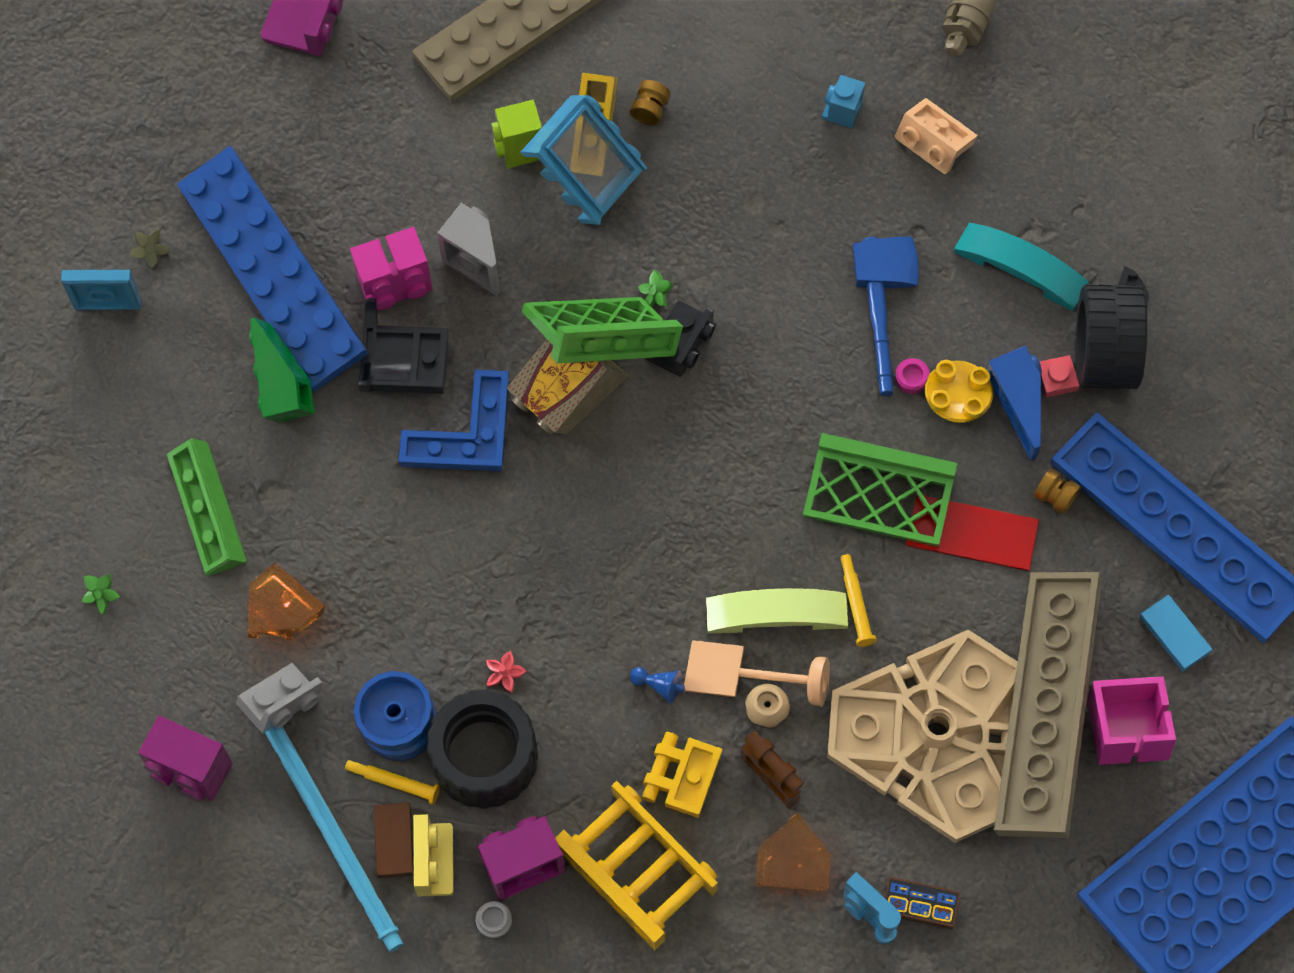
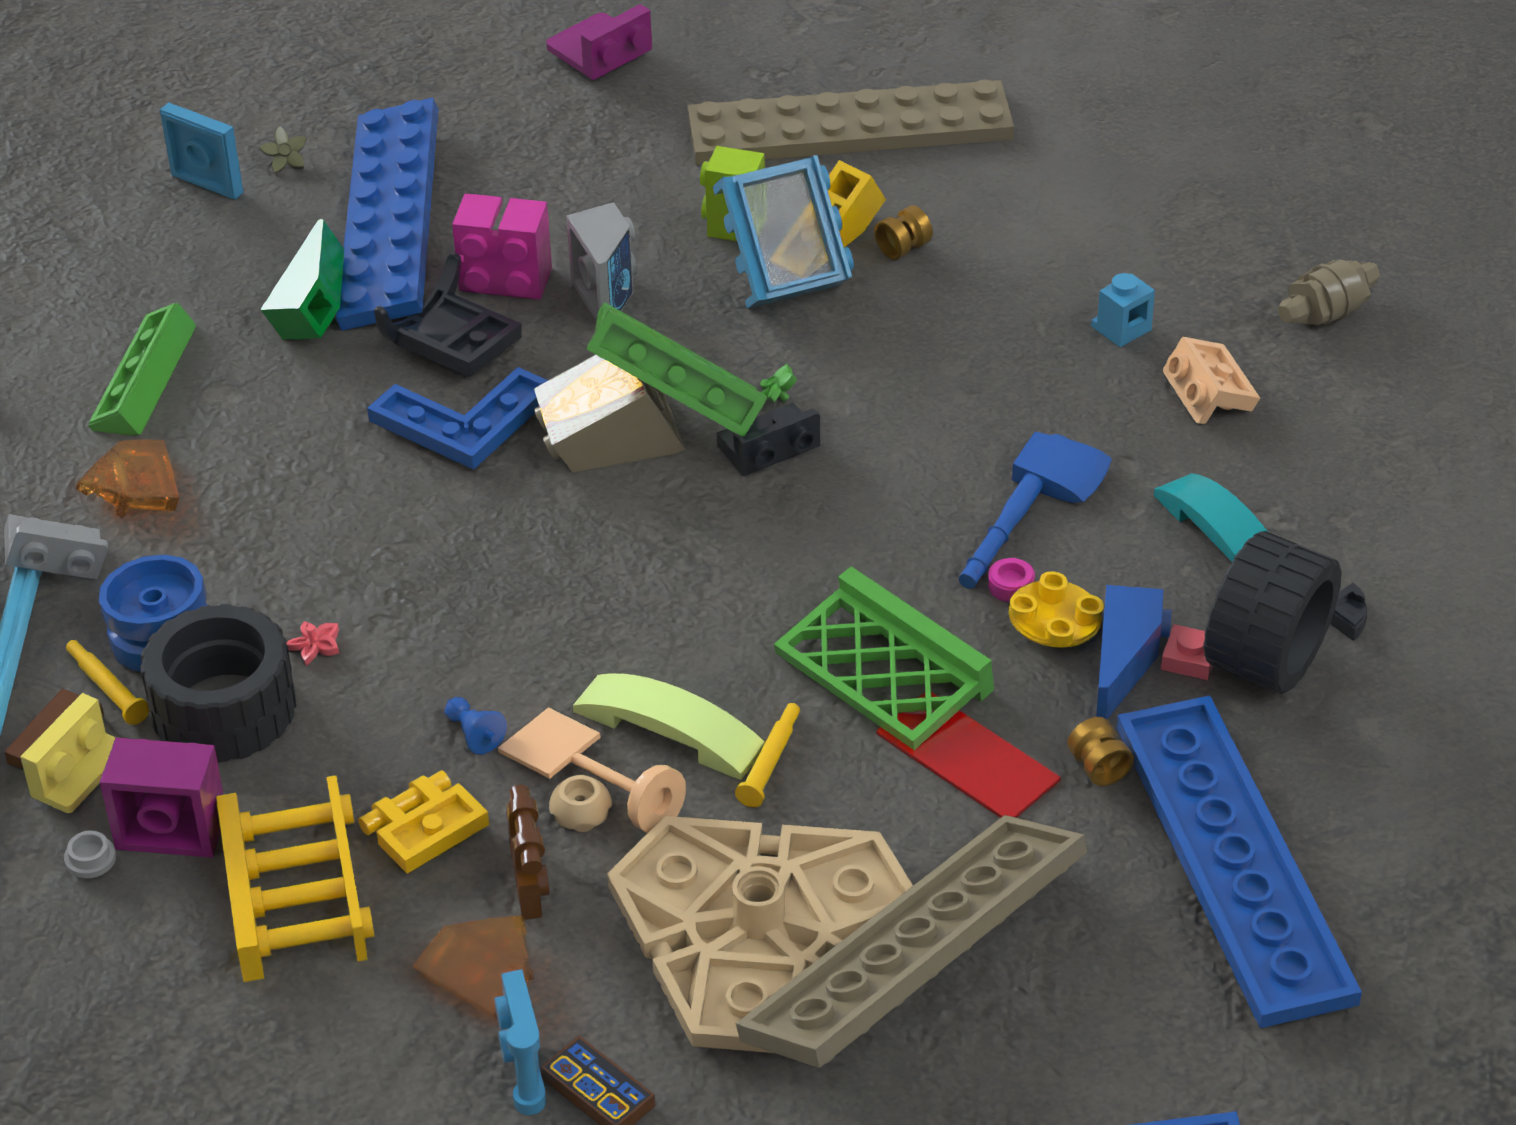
camera: 30 degrees right, 25 degrees down
(1126, 720) = (1009, 1006): dark pink piece -> none
(1175, 633) = (1148, 964): dark azure tile -> none

